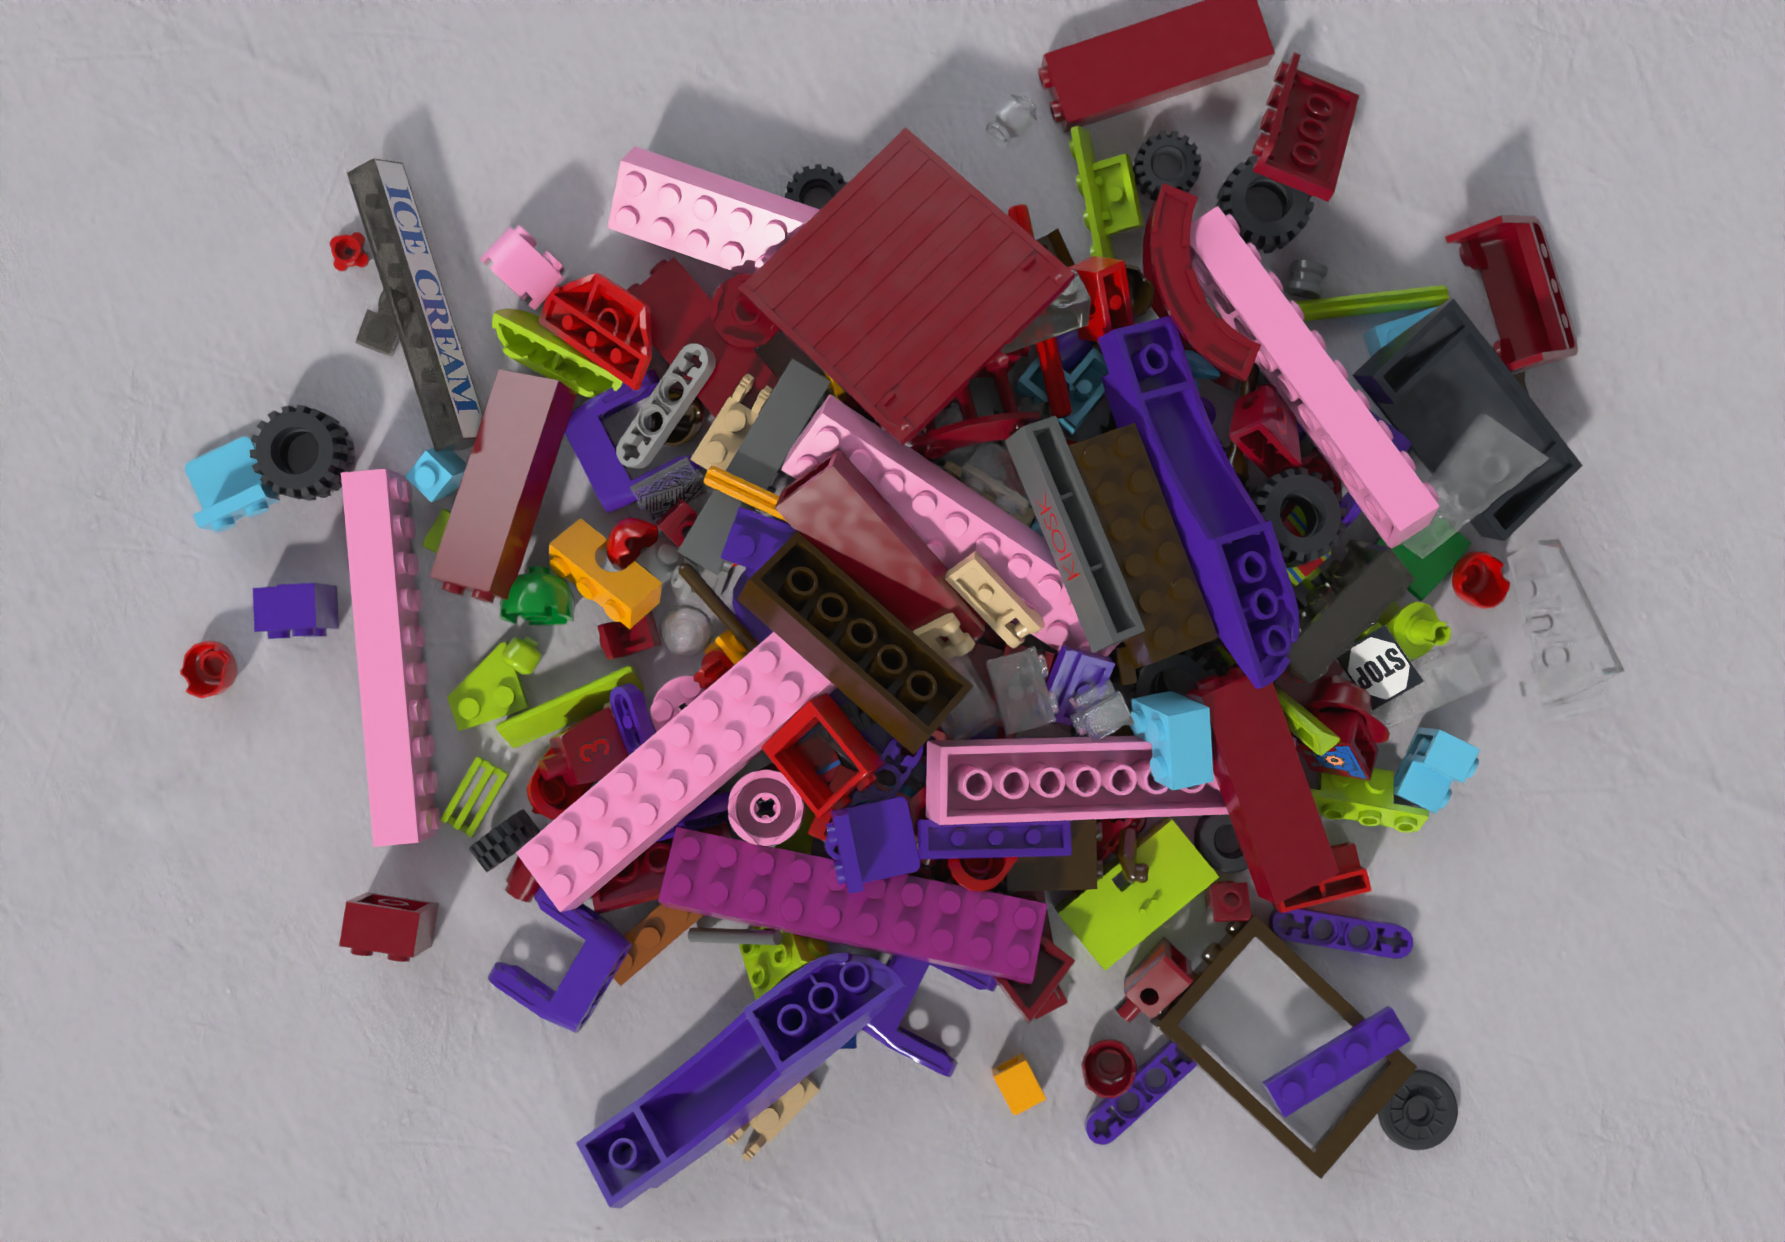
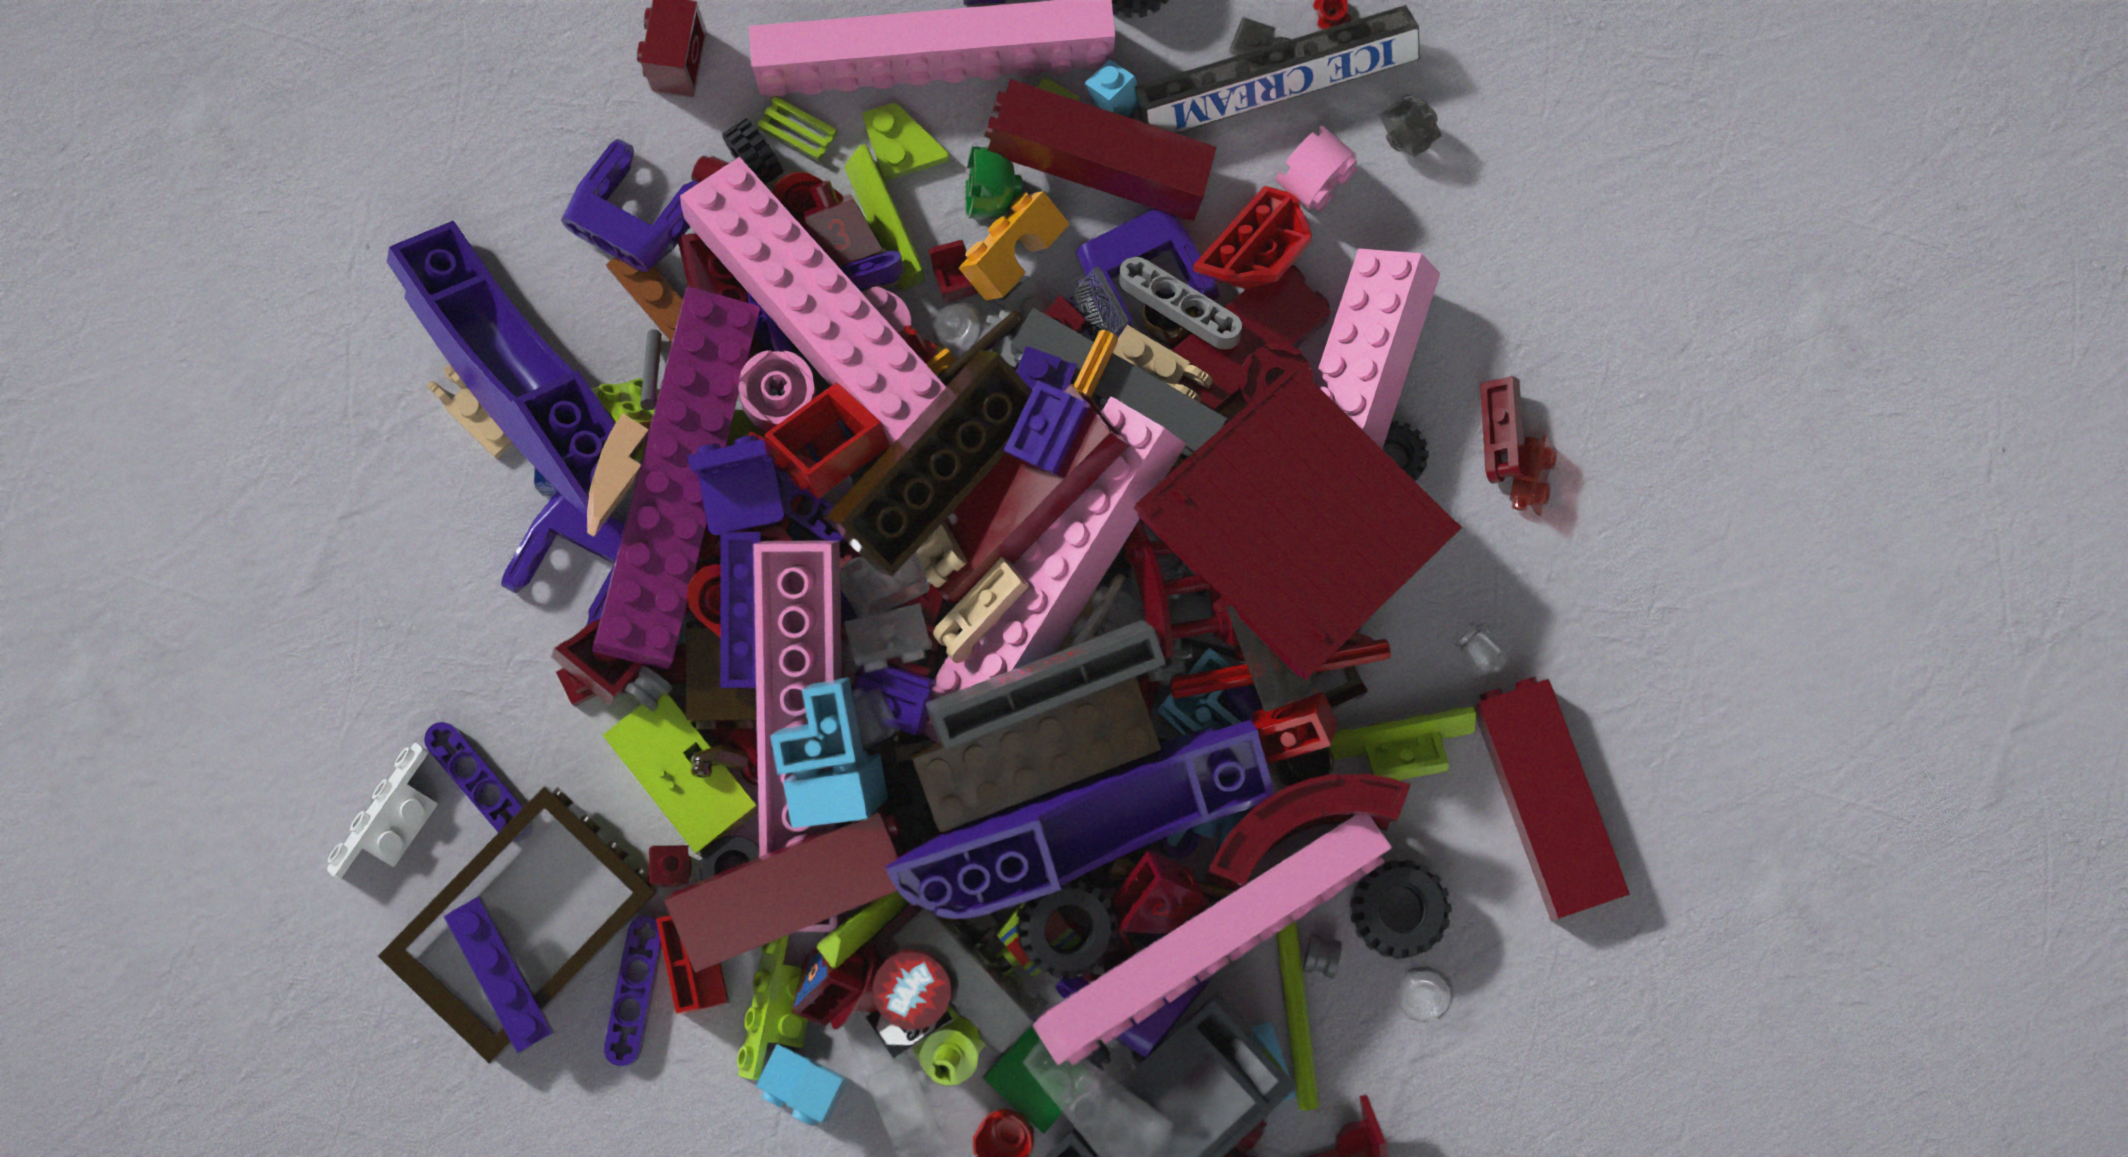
camera: 85 degrees right, 10 degrees down
(475, 173) = (1410, 125): none -> clear smoke brick
(522, 655) = (935, 172): lime piece -> none
(548, 354) = (1235, 187): lime brick -> none
(628, 540) = (1047, 270): red hair -> none
(791, 91) = (1503, 429): none -> dark red plate
(822, 60) = (1534, 488): none -> clear red hinge
(823, 530) = (1047, 427): none -> dark purple plate
(855, 968) = (614, 471): none -> light nougat slope
(1018, 1084) = (490, 653): light orange panel -> none
(1063, 927) = (648, 688): none -> dark grey wheel
(1109, 1068) = (502, 744): dark red hair -> none
(1129, 748) = (828, 737): none -> medium azure brick
(1164, 972) = (590, 791): dark red torso -> none
(1171, 145) = (1460, 804): black tyre -> none
(1181, 1174) = (390, 820): none -> white bracket
(1304, 131) = (1476, 946): dark red bracket -> none
(1349, 188) = (1425, 991): none -> clear hair
(1360, 663) = (912, 989): none -> tile
(1431, 1128) = (419, 1078): black wheel -> none

